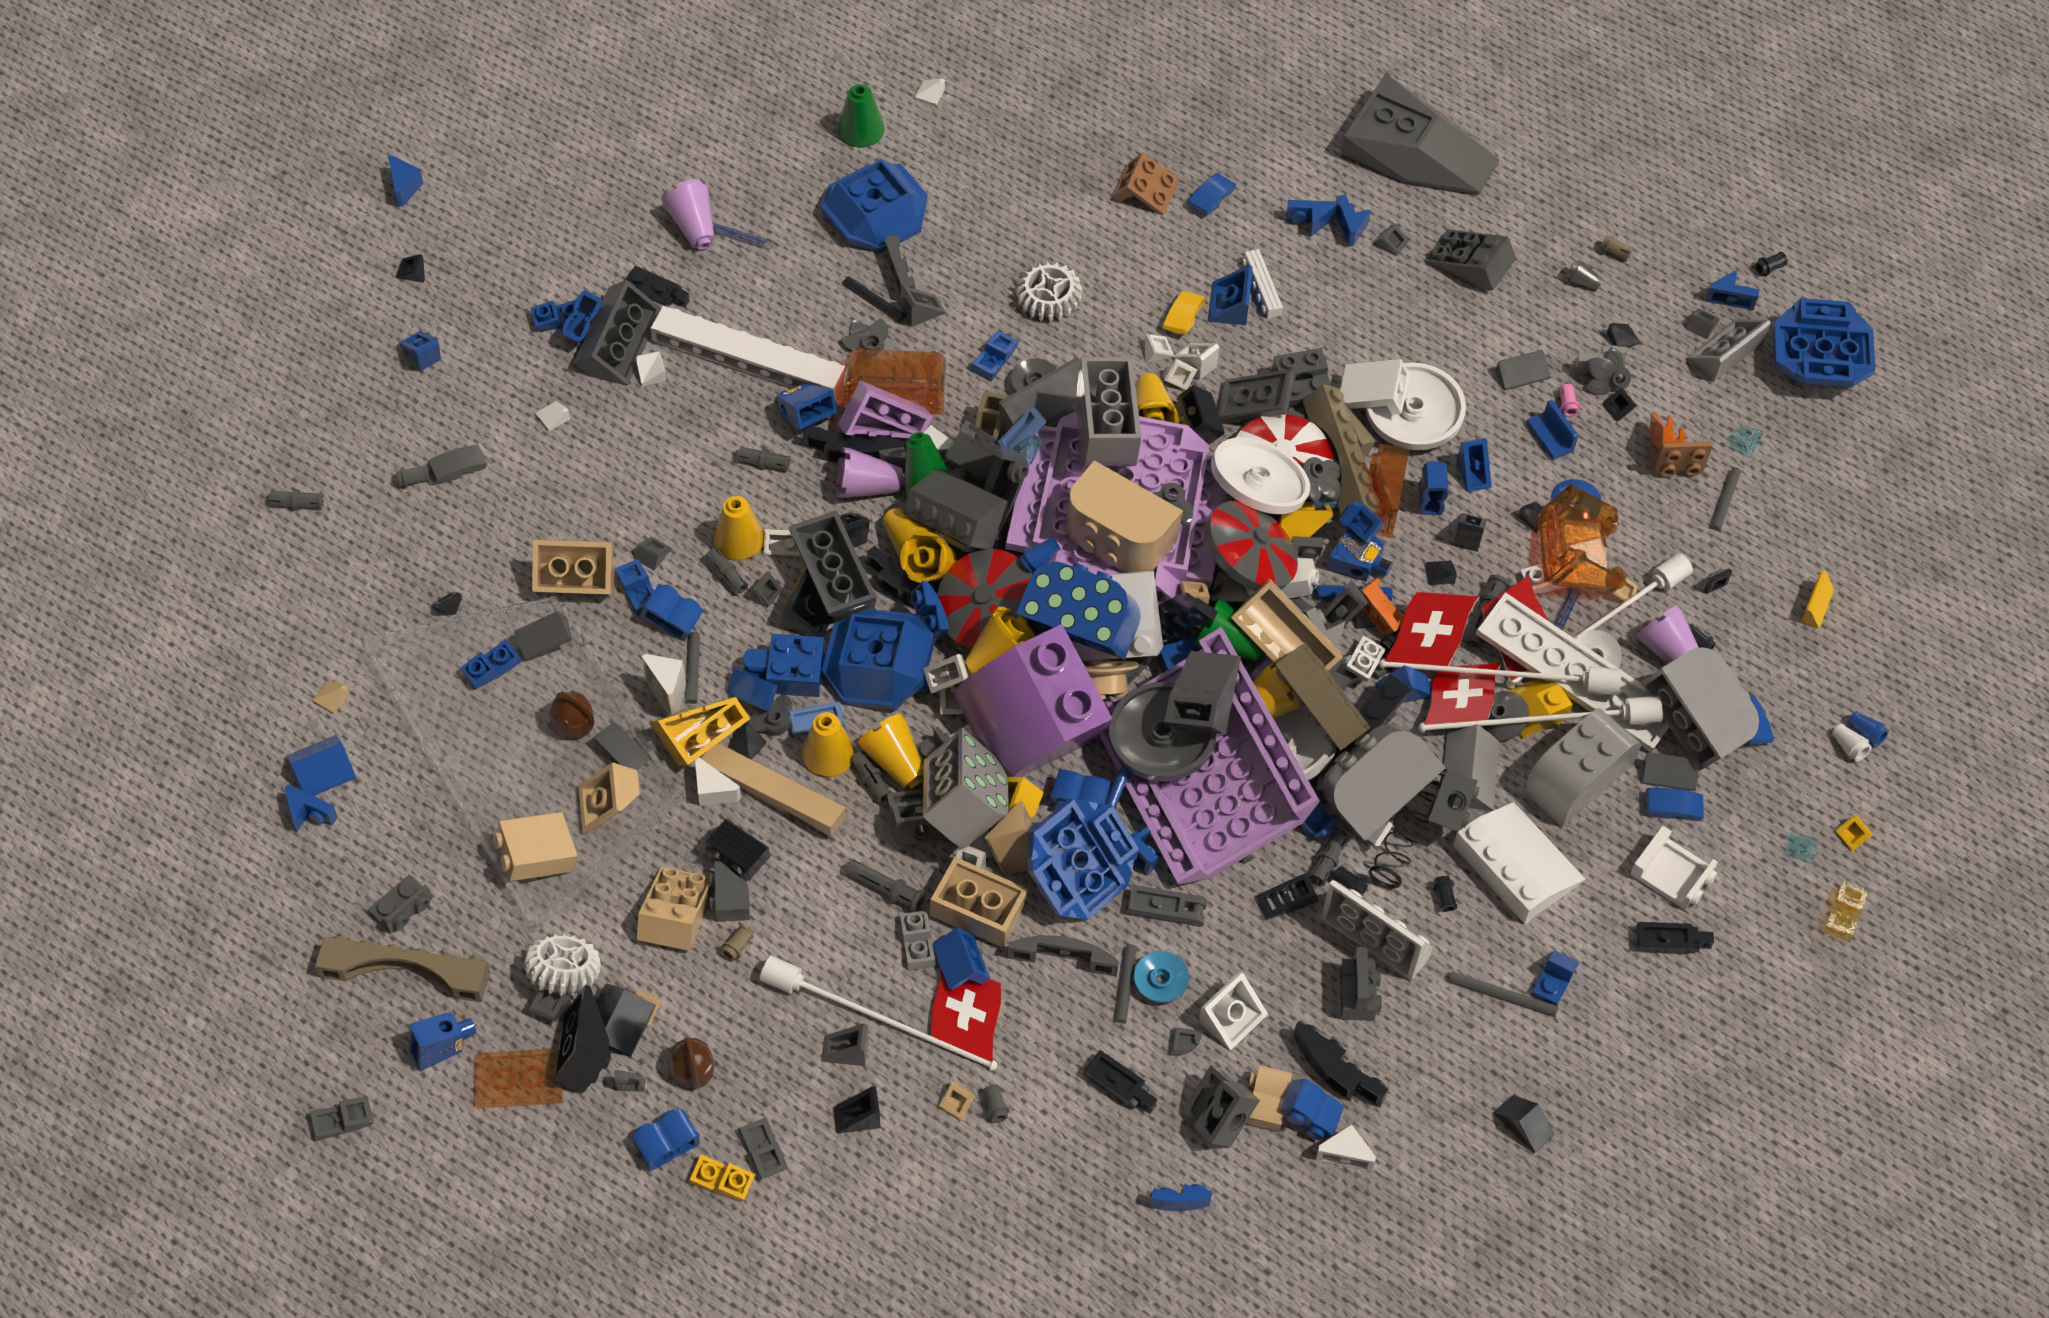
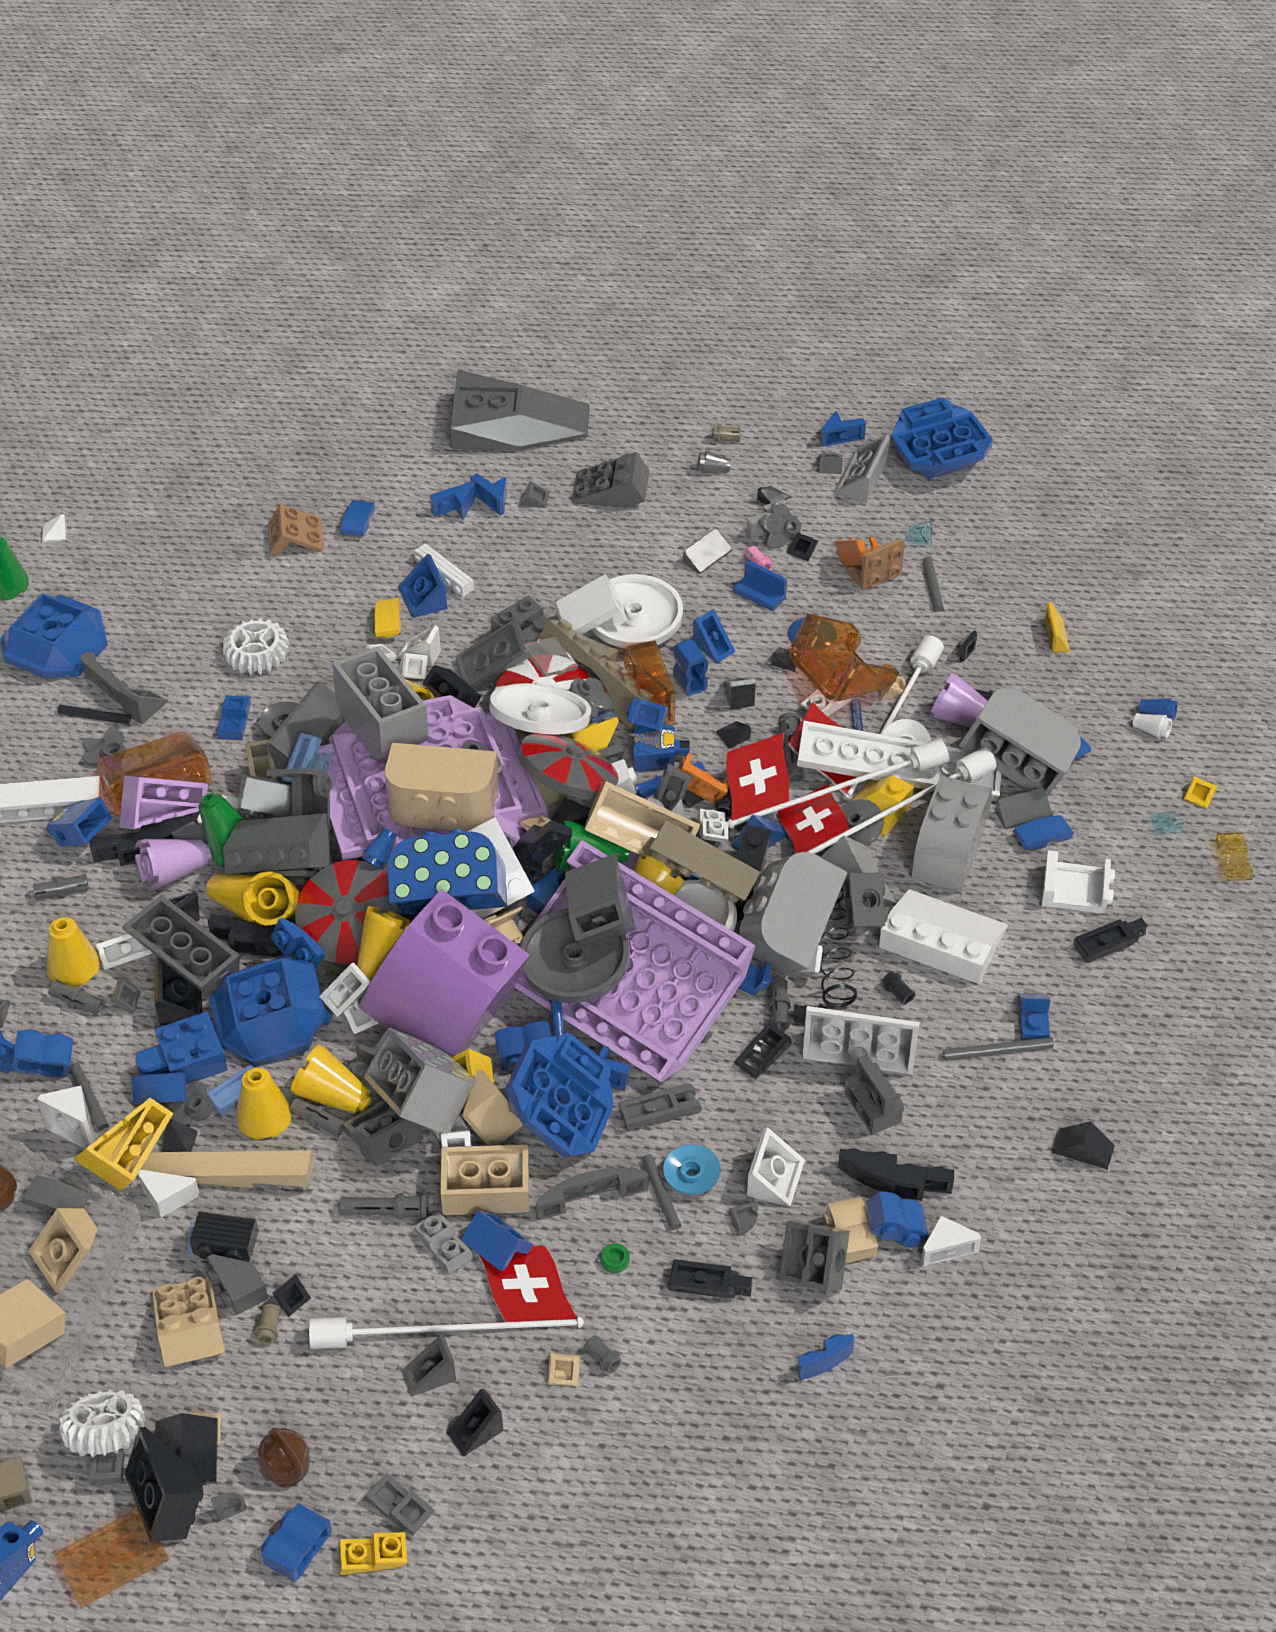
camera: 25 degrees left, 10 degrees down
(768, 927) = (291, 1295): none -> black slope
(1053, 1024) = (615, 1258): none -> green tile
(1304, 422) = (550, 656): none -> clear piece
(1766, 265) = (855, 401): black pin -> none

